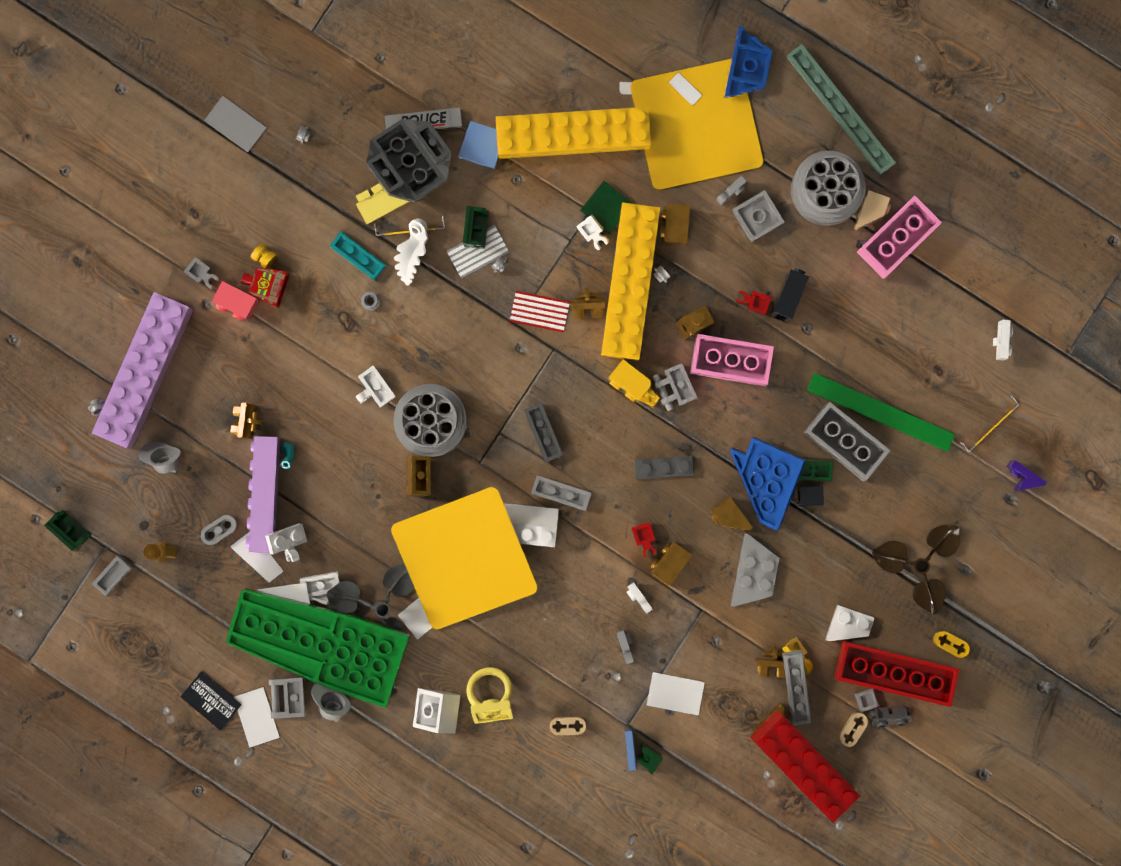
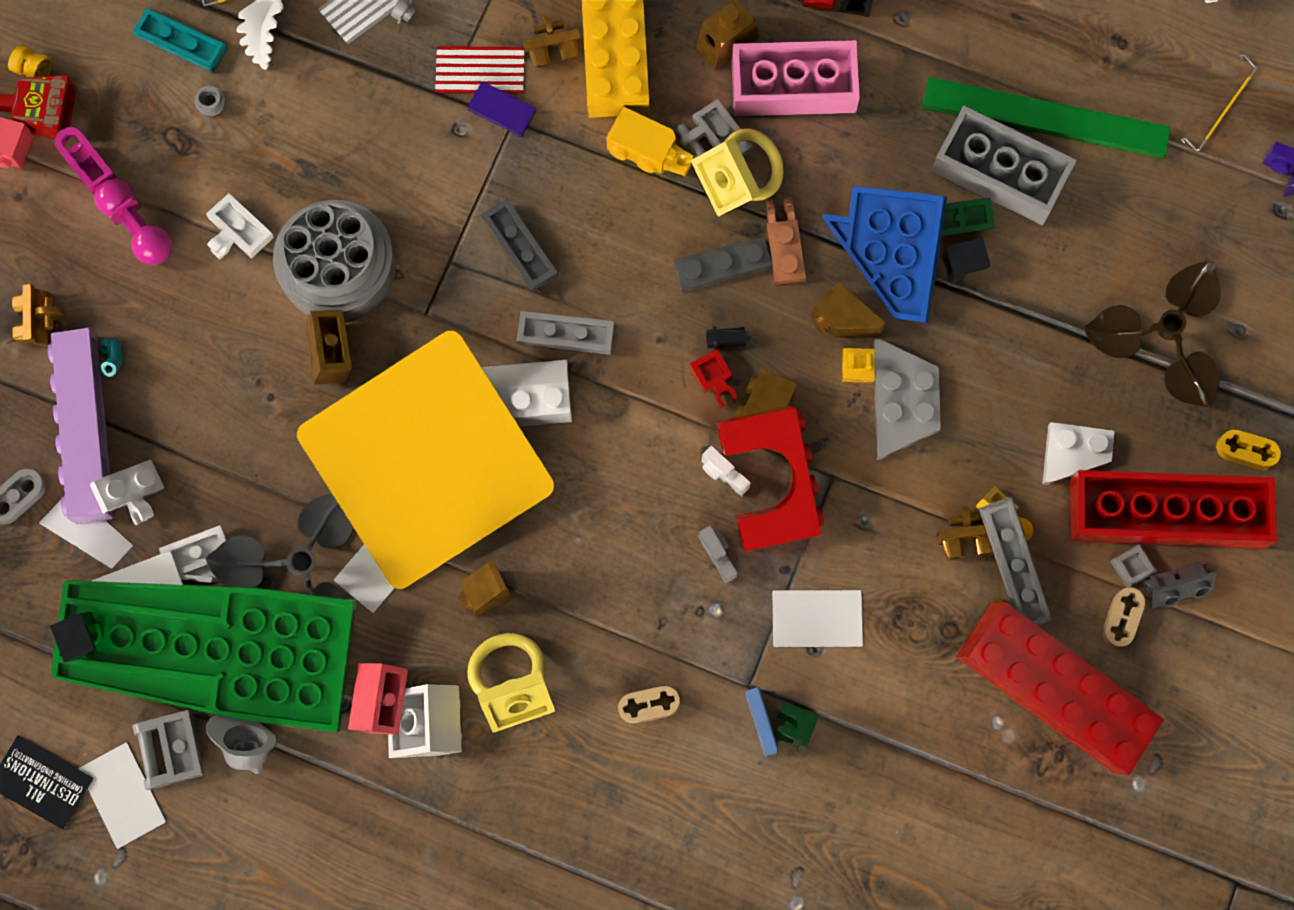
camera: 10 degrees left, 10 degrees down
(244, 625) = (74, 636): none -> black panel
(304, 357) = (114, 198): none -> dark pink piece
(412, 693) = (378, 698): none -> coral brick
(485, 642) = (484, 589): none -> pearl gold slope
(548, 341) = (501, 109): none -> dark purple tile
(656, 514) = (725, 337): none -> black pin
(675, 632) = (796, 514): none -> red arch
(676, 415) = (728, 176): none -> light yellow tile
(703, 462) = (784, 245): none -> nougat hinge
(732, 546) = (858, 365): none -> yellow tile

